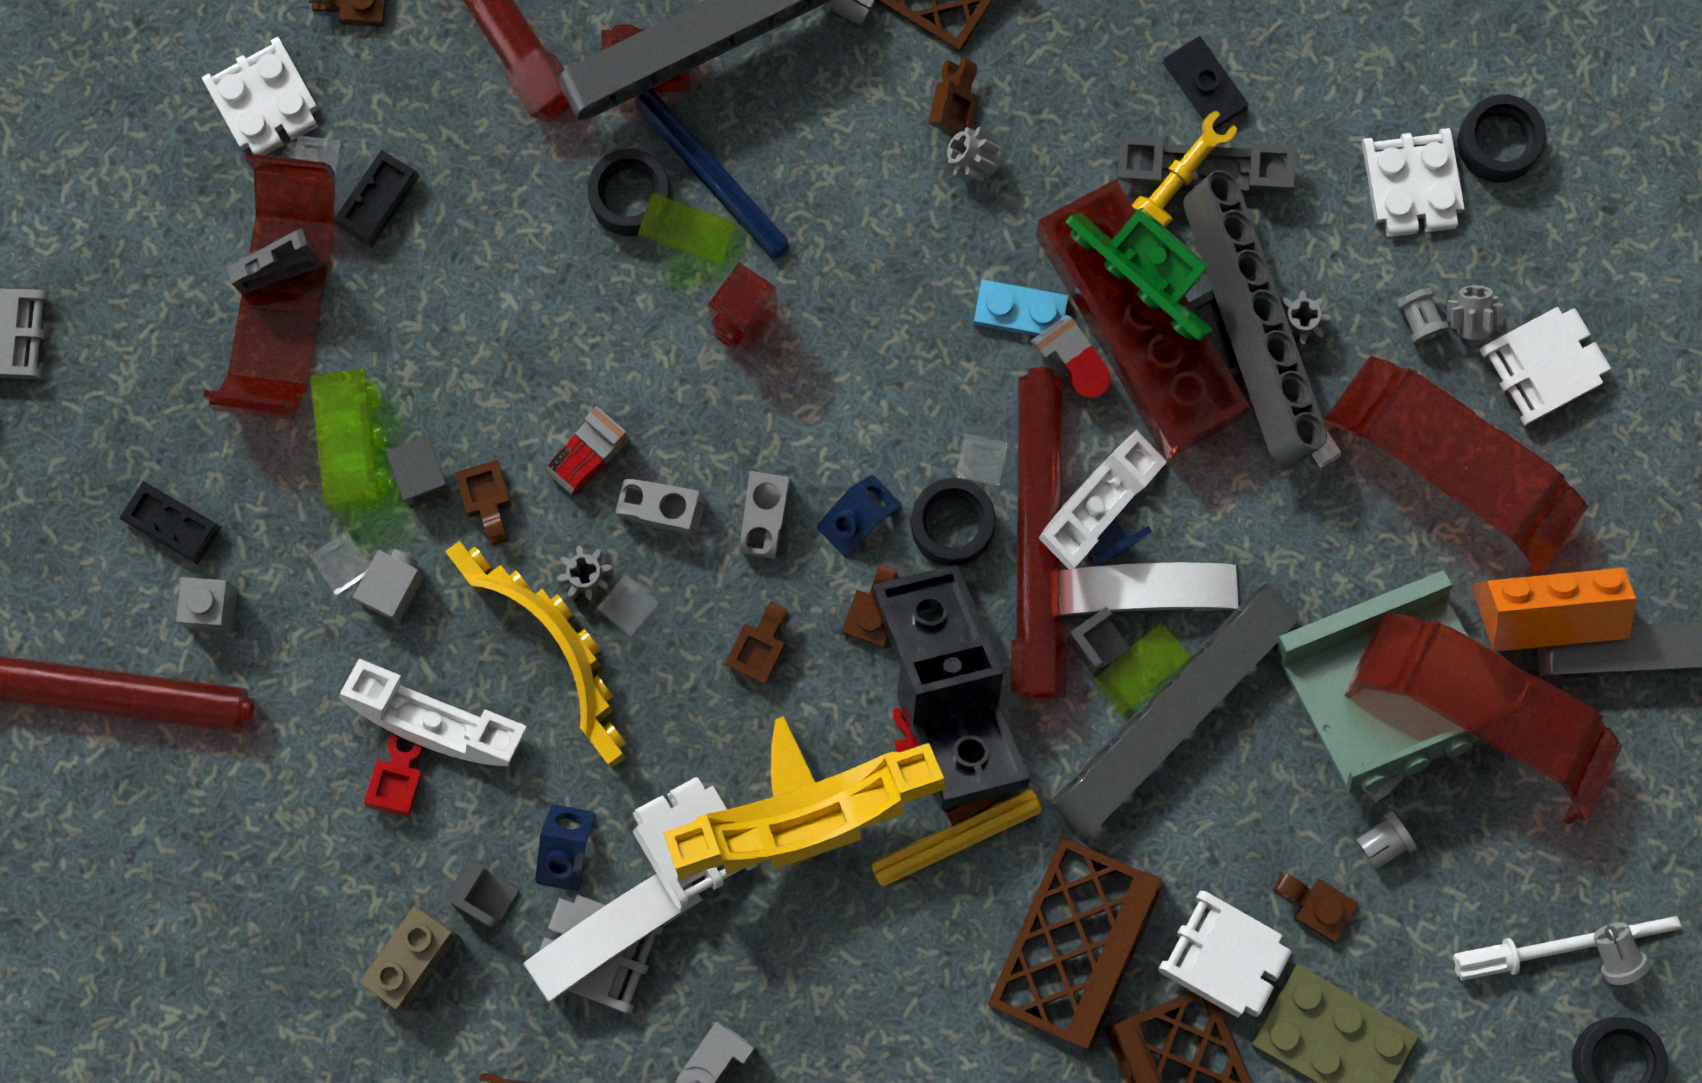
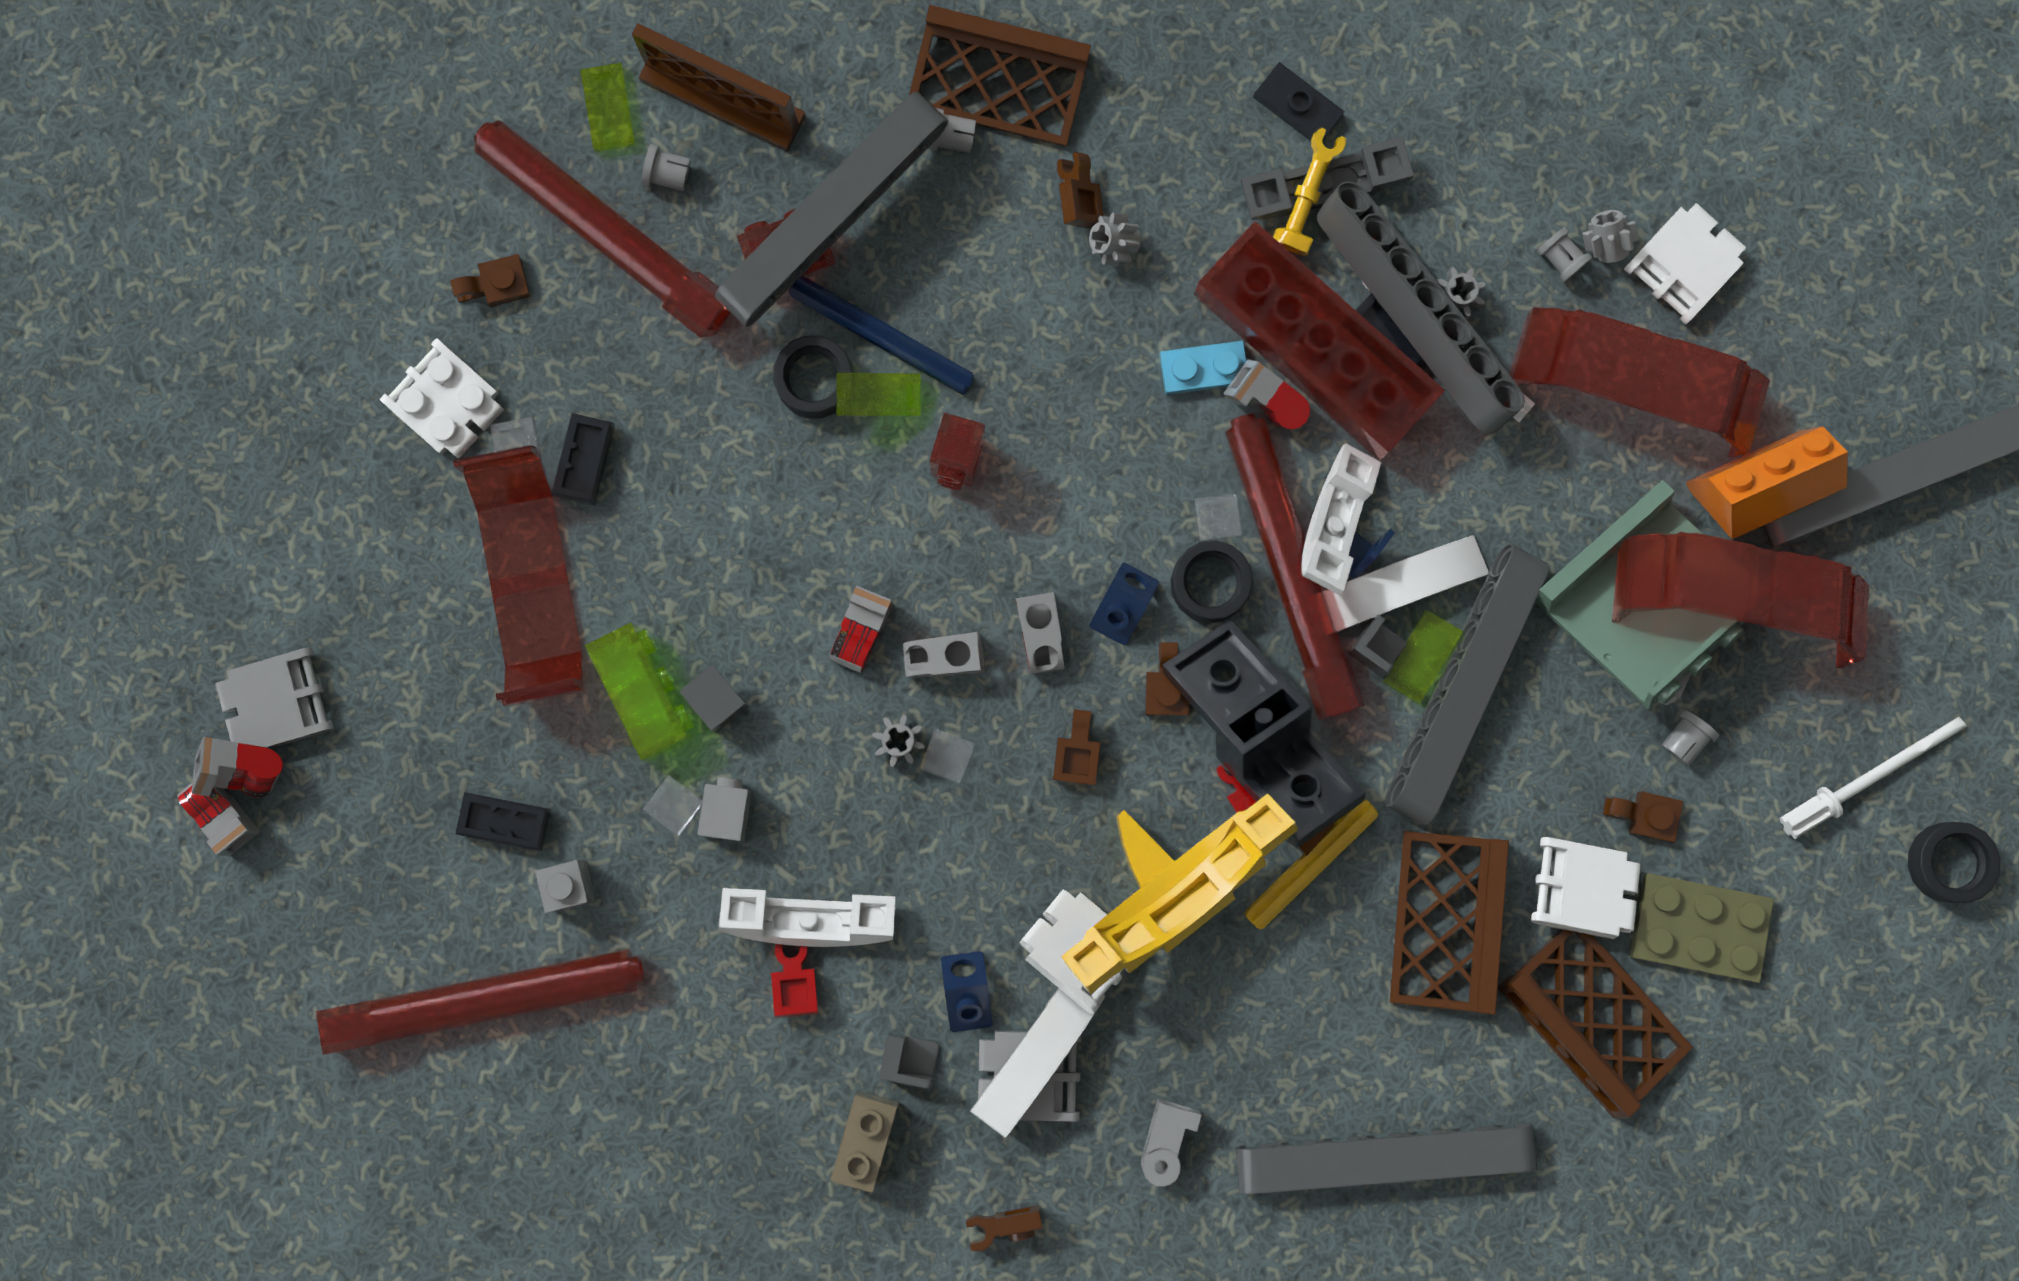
camera: 25 degrees left, 5 degrees up
(276, 262) = (513, 552): dark grey wing -> none
(483, 494) = (780, 698): reddish brown plate -> none
(577, 648) = (916, 810): yellow piece -> none
(1153, 262) = (1318, 288): green bracket -> none
(1414, 182) = (1515, 134): white plate -> none
(1521, 112) = (1601, 45): black tyre -> none
(1621, 960) = (1927, 773): light grey bush -> none

